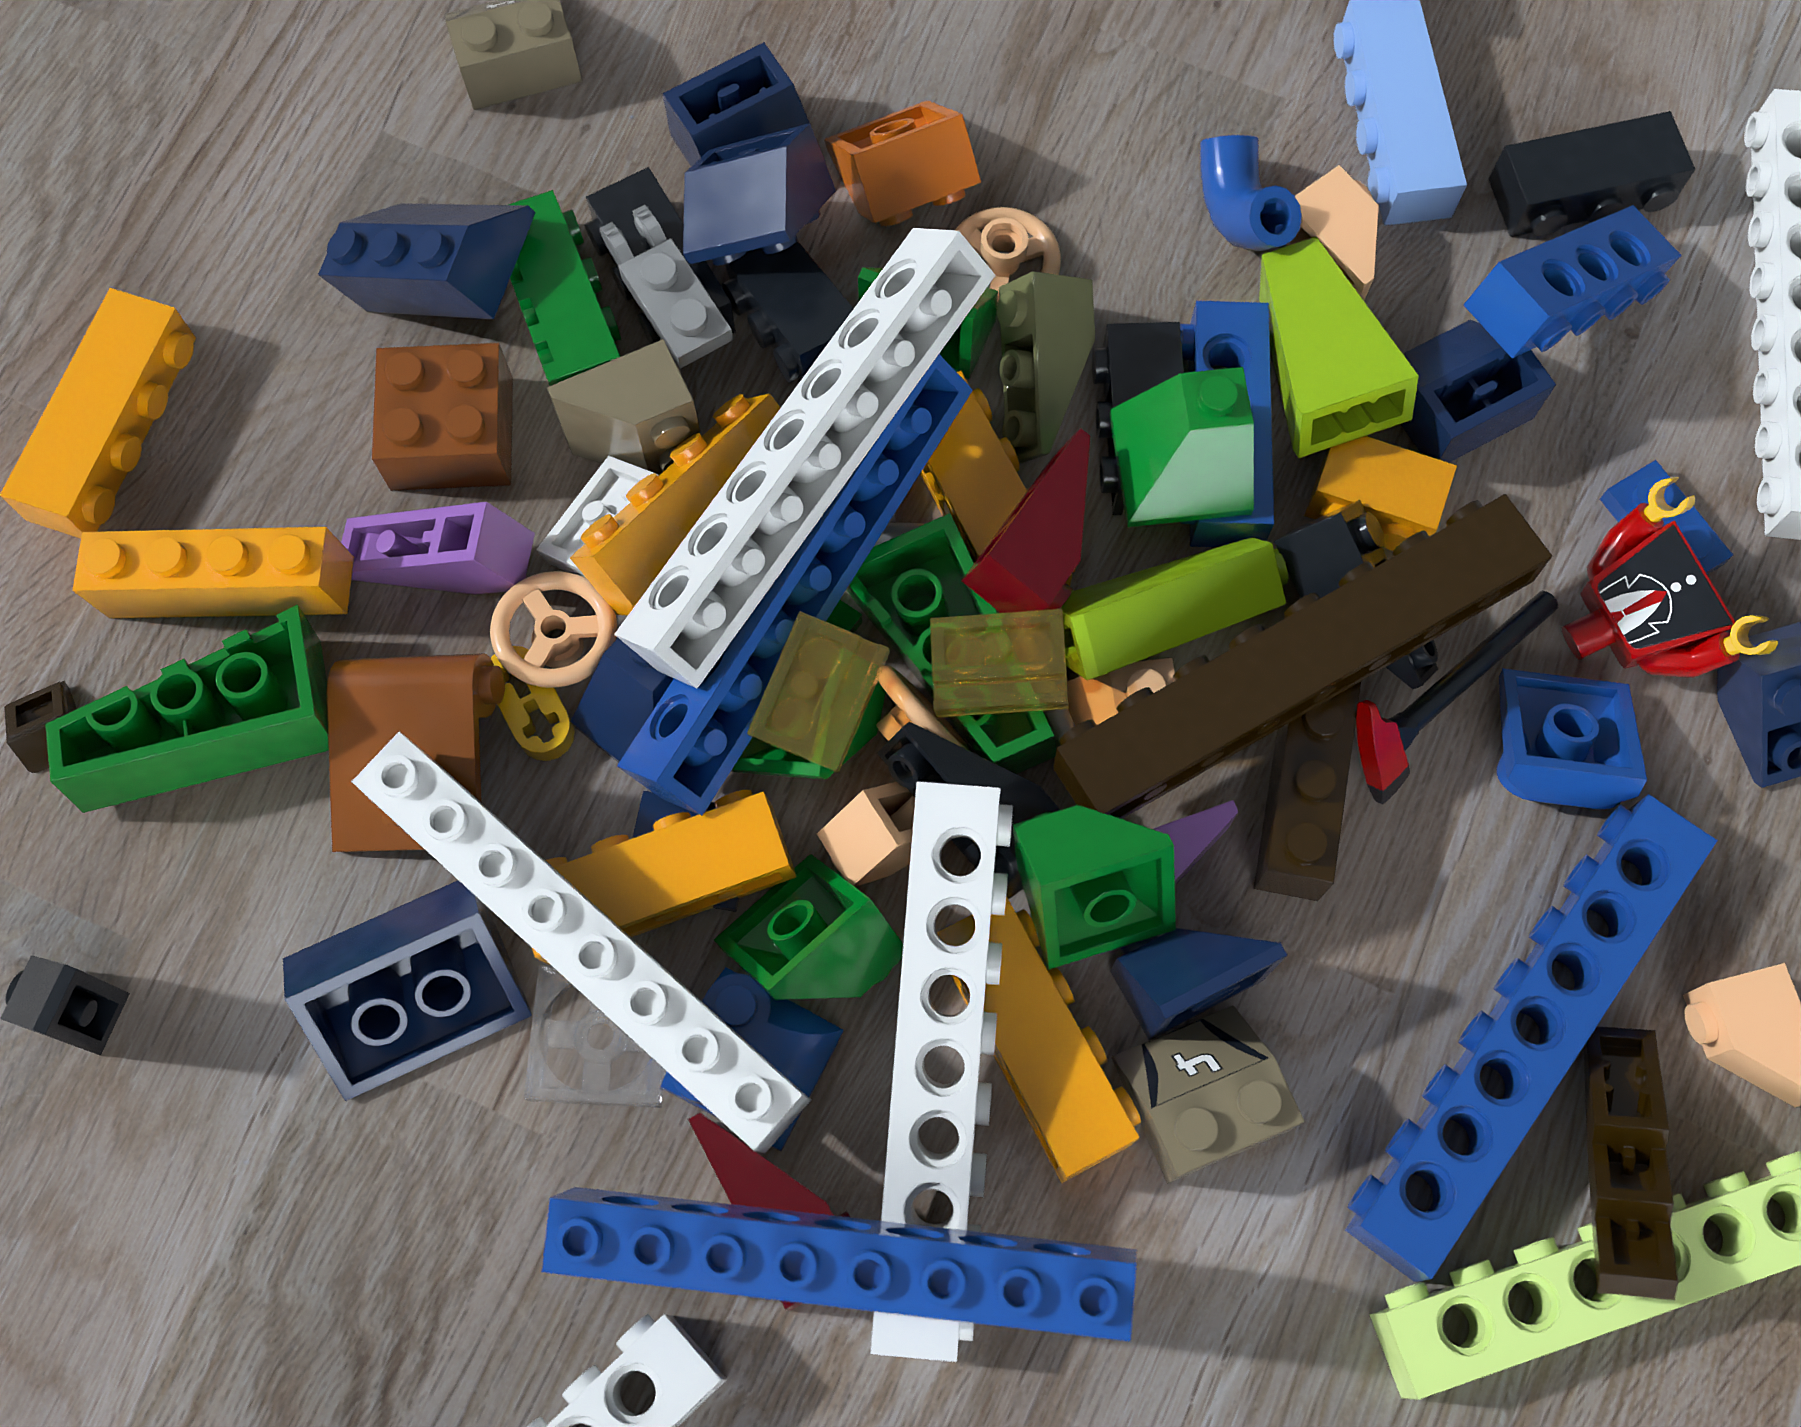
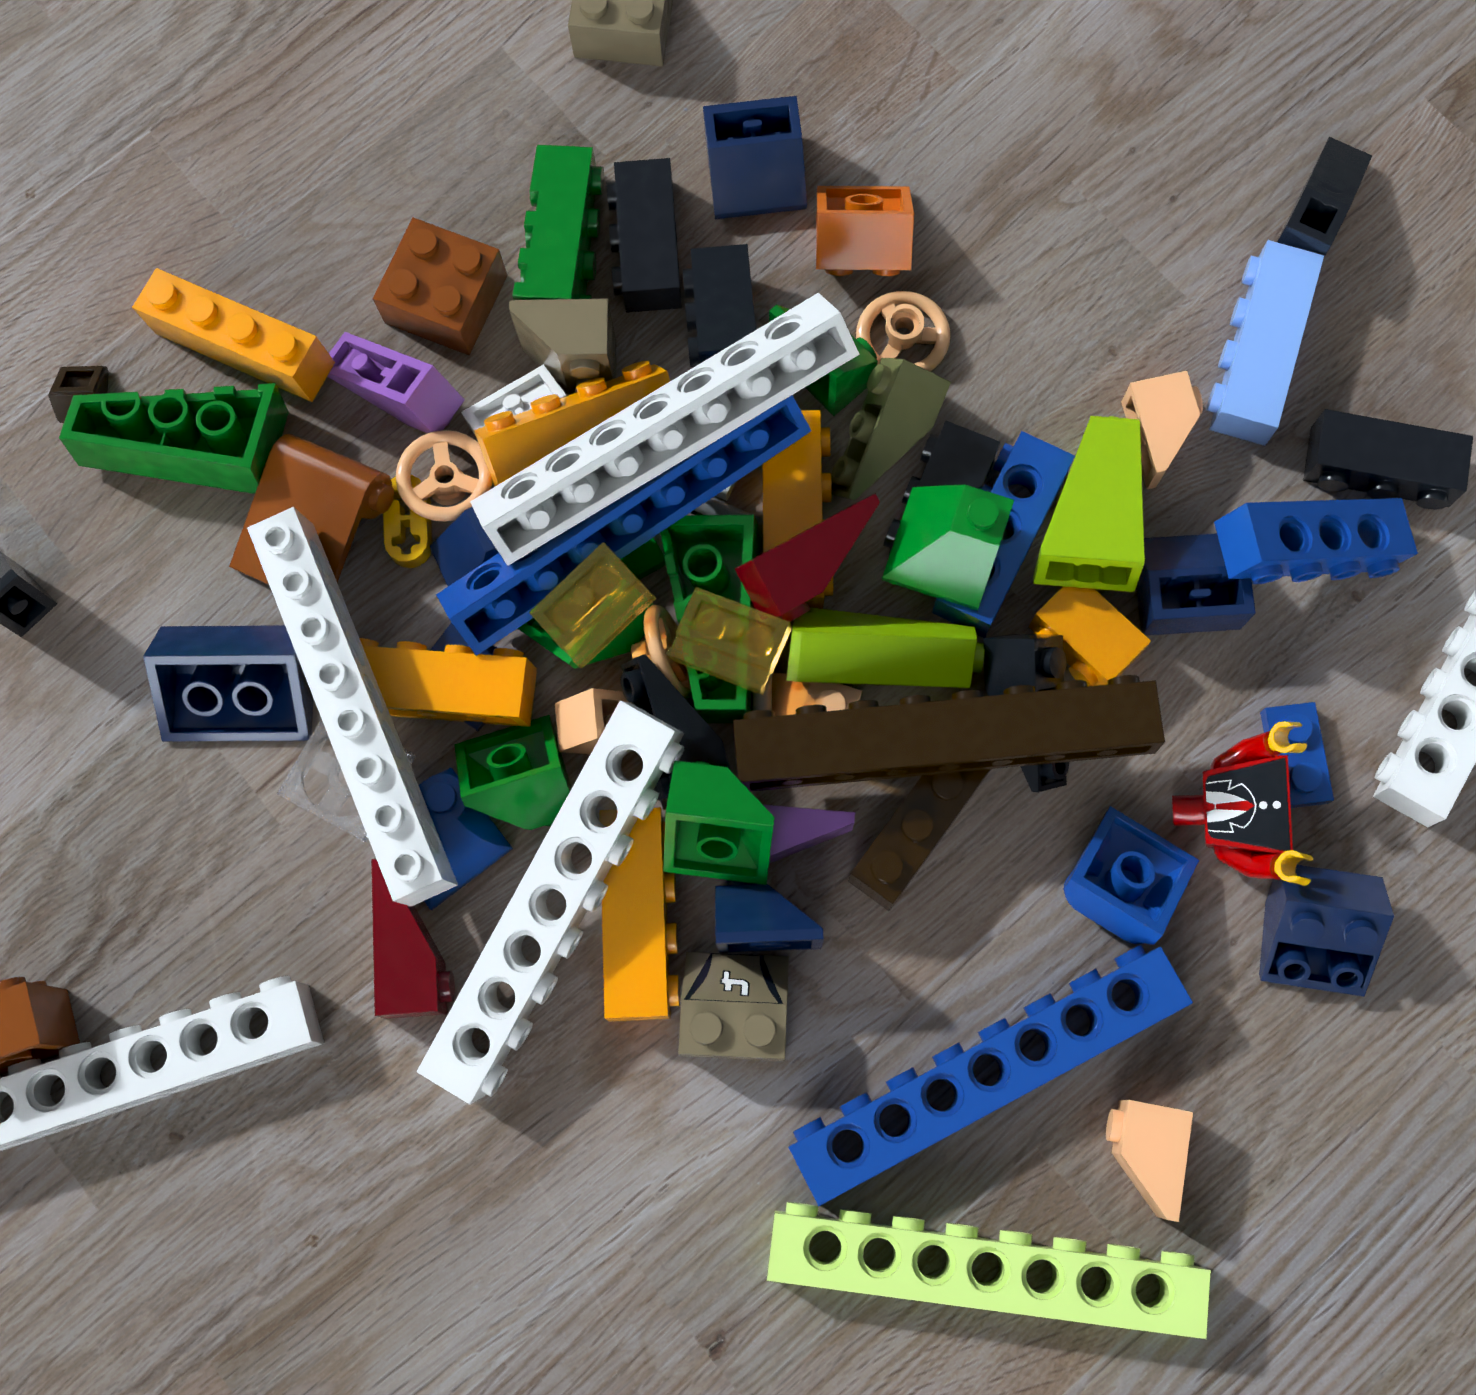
camera: 30 degrees right, 5 degrees up
(100, 415) = (210, 183): light orange brick -> none
(428, 258) = (481, 161): dark blue slope -> none
(668, 291) = (636, 262): light grey hinge -> none
(754, 195) = (729, 214): dark blue slope -> none
(843, 1262) = (422, 1004): blue brick -> none
(1236, 201) = (1099, 363): blue cylinder -> none
(1384, 740) = (989, 821): black piece -> none
(1629, 1164) = (1001, 1194): dark brown slope -> none

